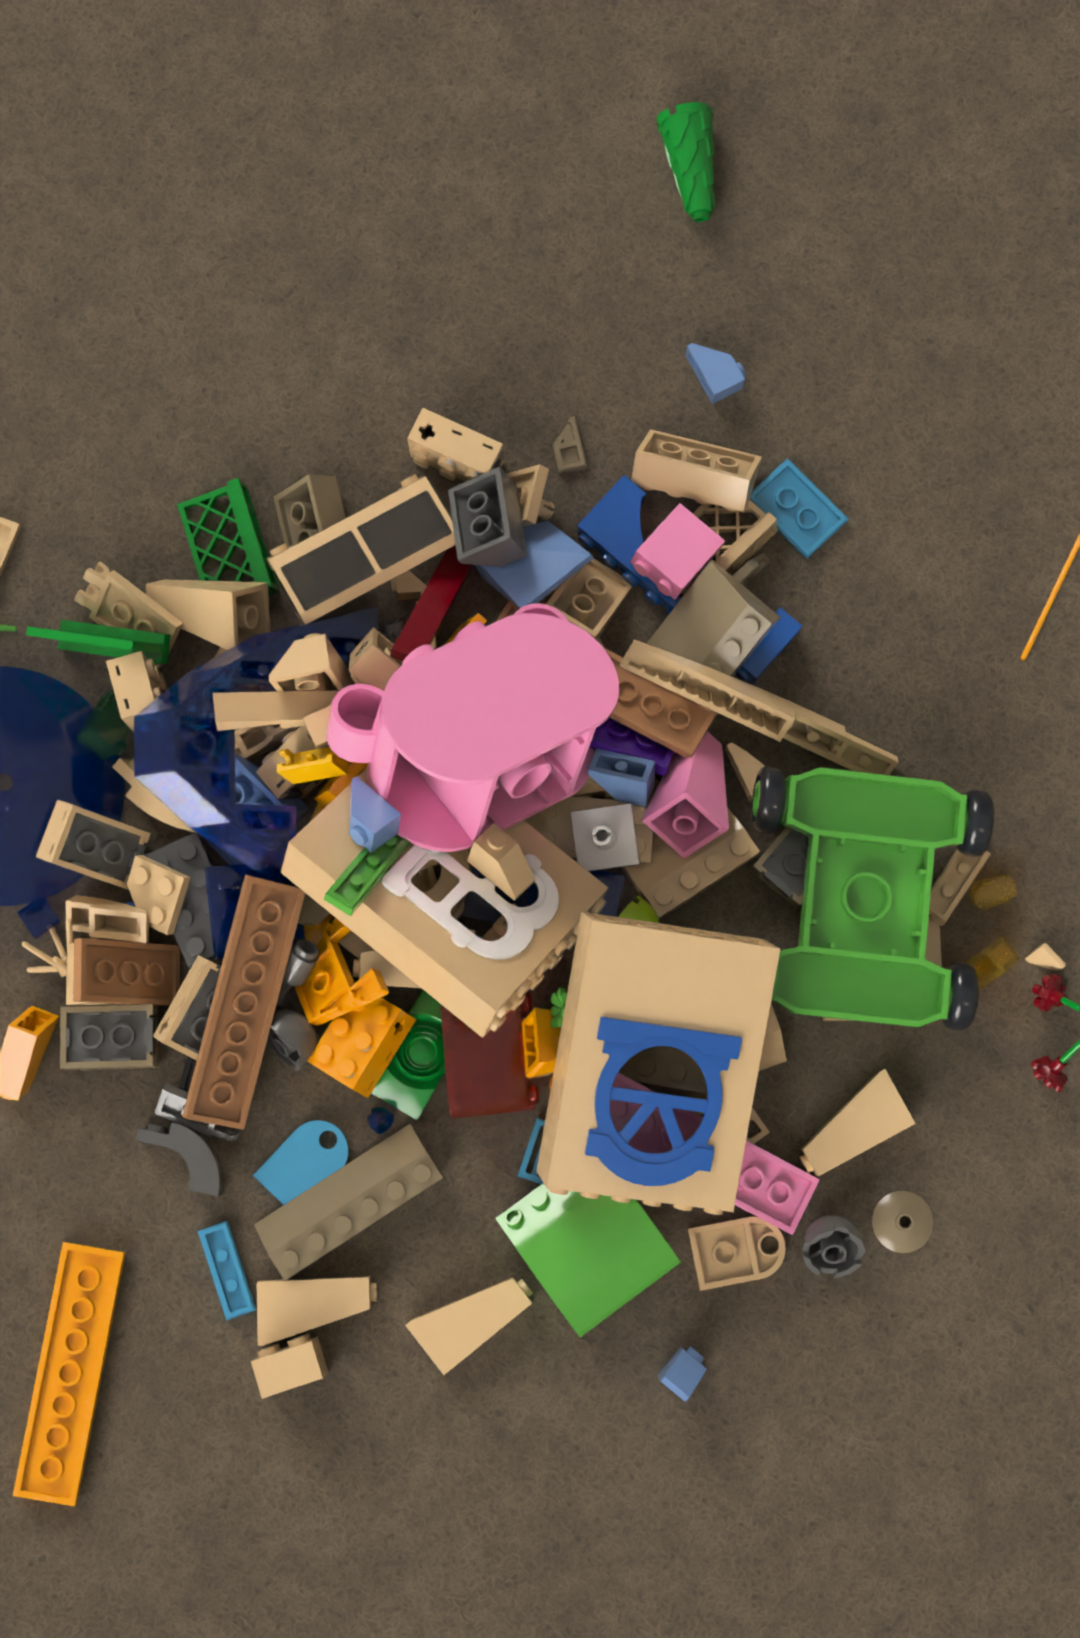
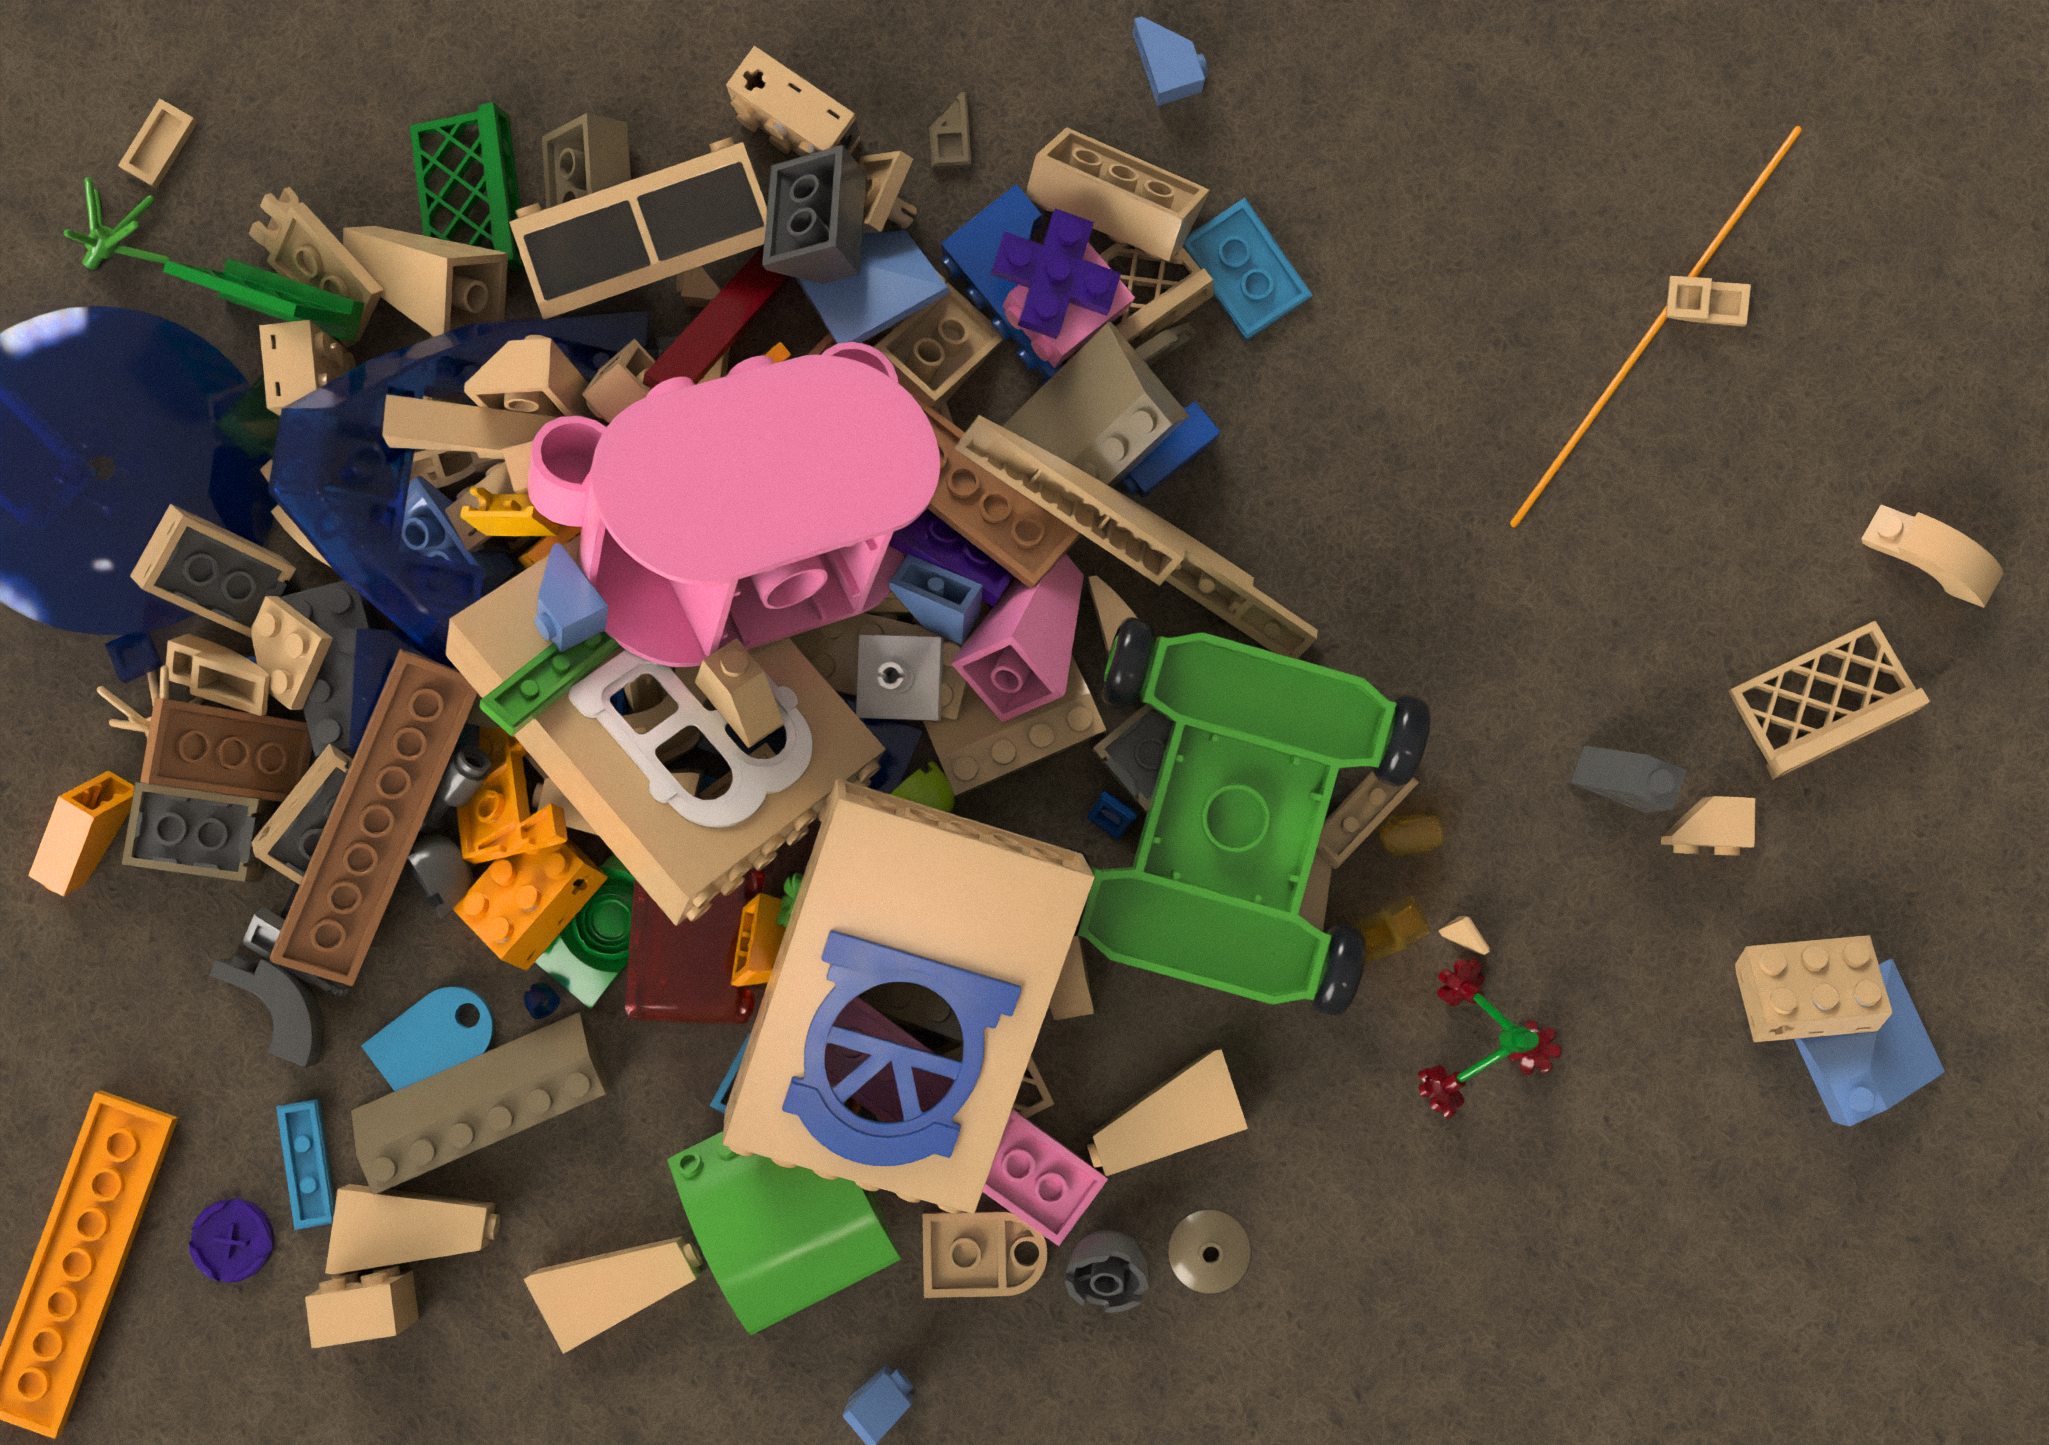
camera: 10 degrees right, 5 degrees up
(180, 1337) = (231, 1240): none -> dark purple tile
(666, 532) = (1055, 273): none -> dark purple plate
(773, 914) = (1112, 815): none -> blue slope

